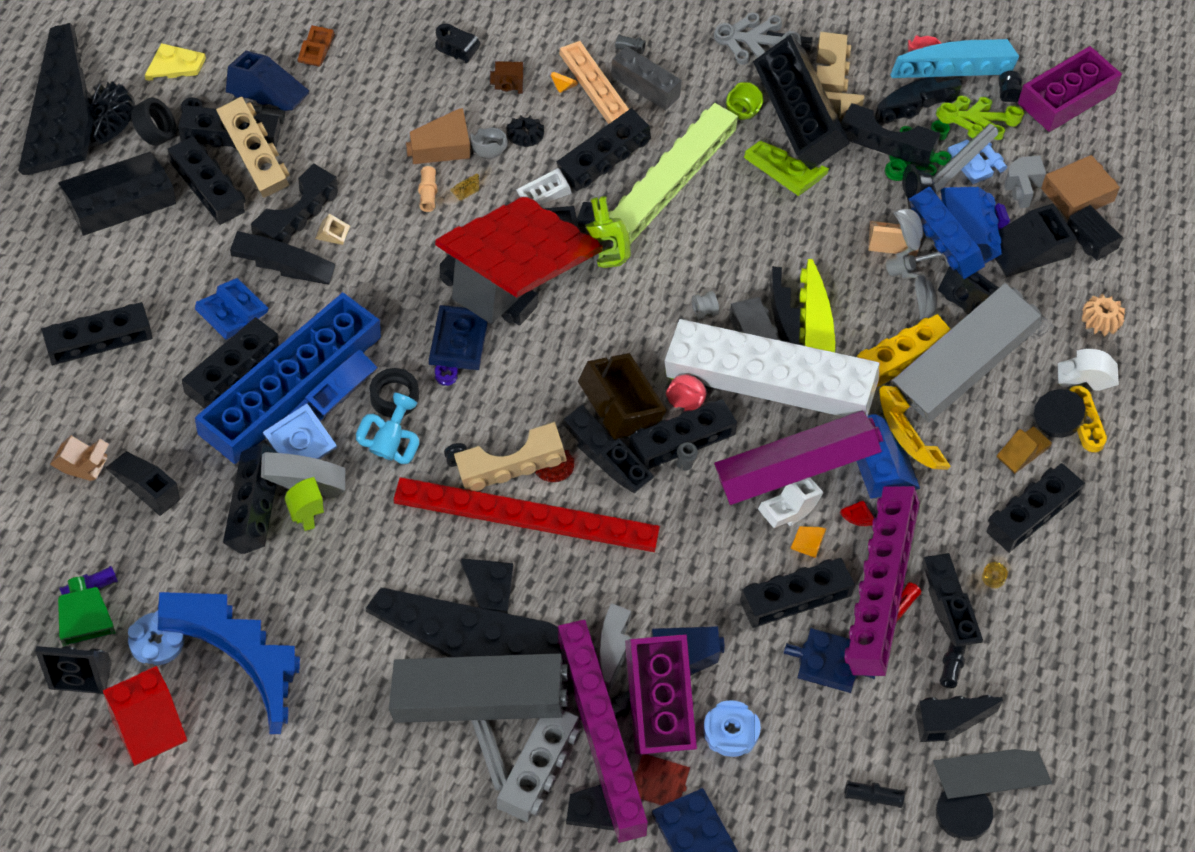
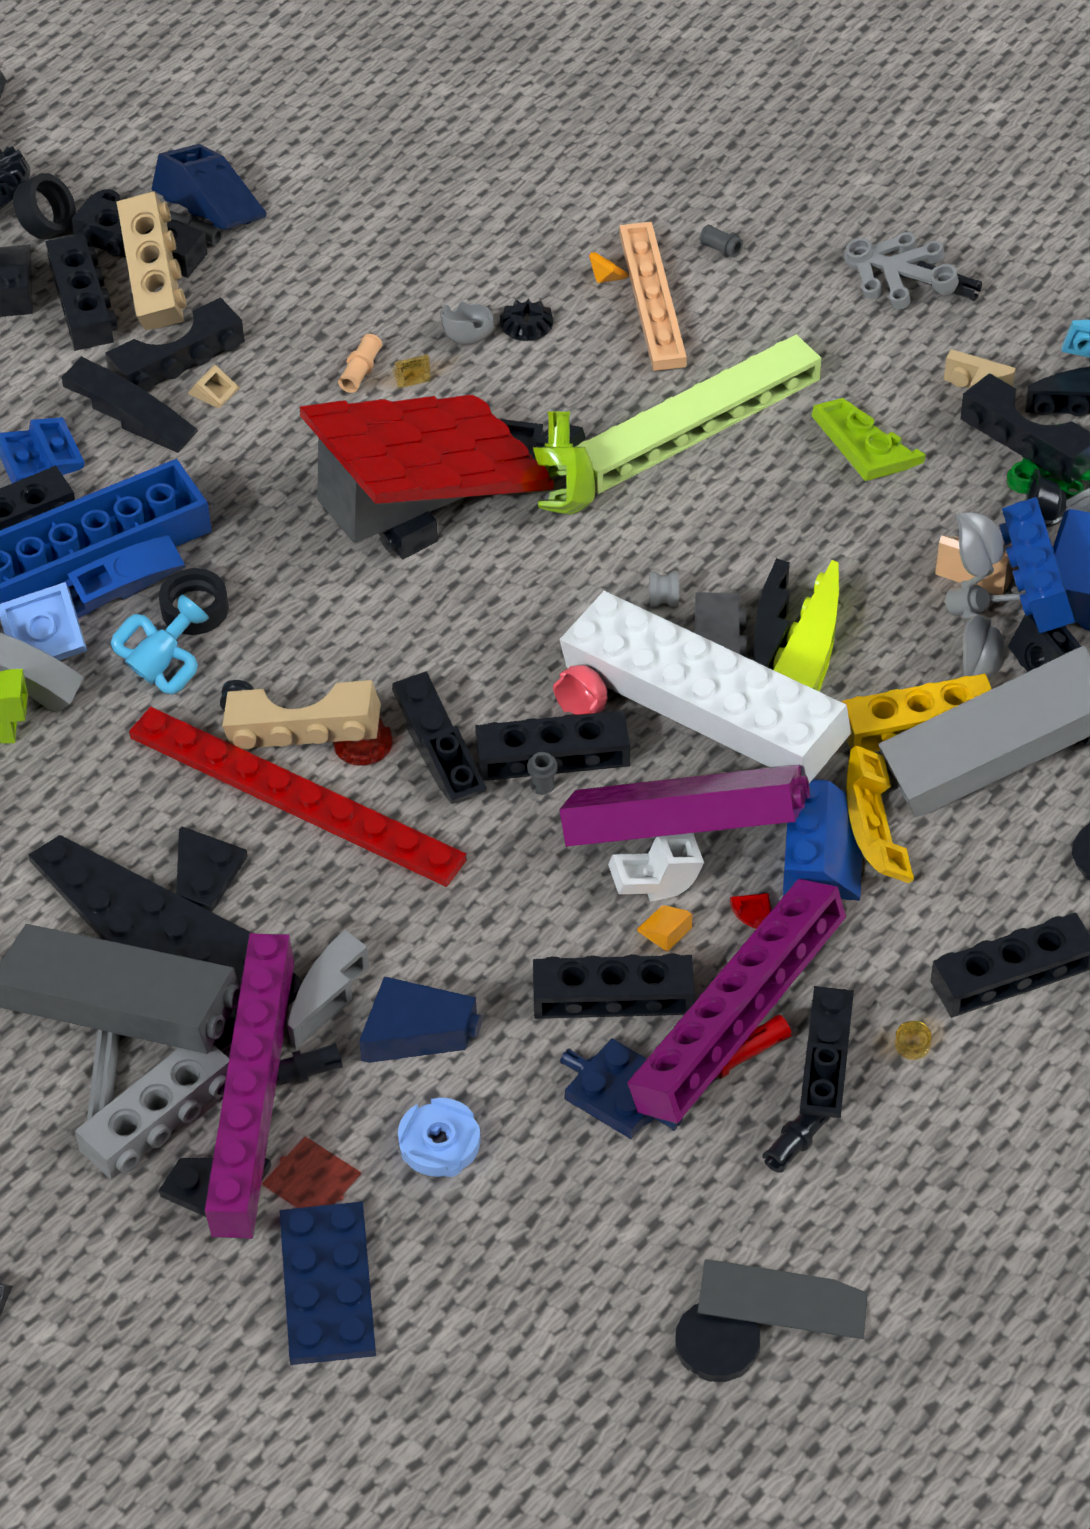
camera: 25 degrees right, 5 degrees down
(174, 62) = (112, 144): light yellow wing -> none
(316, 46) = (299, 164): dark orange slope -> none
(440, 140) = (404, 305): medium nougat slope -> none
(447, 379) = (276, 586): dark purple bush -> none
(457, 44) = (484, 191): black piece -> none
(458, 338) = (308, 555): dark blue tile -> none
(507, 76) = (533, 246): reddish brown brick -> none
(548, 179) = (529, 404): white slope -> none
(608, 139) = (615, 362): black brick -> none
(621, 395) = (486, 680): dark brown piece -> none
(646, 78) = (719, 286): flat silver brick -> none
(660, 694) = (348, 1058): magenta brick -> none
(744, 95) = (843, 335): lime hair -> none
(801, 102) = (915, 357): black brick -> none
(833, 51) = (1001, 306): tan arch -> none
(874, 794) = (597, 1278): black pin -> none
(950, 717) = (755, 1208): black slope -> none
(1023, 449) = (1036, 884): pearl gold slope -> none

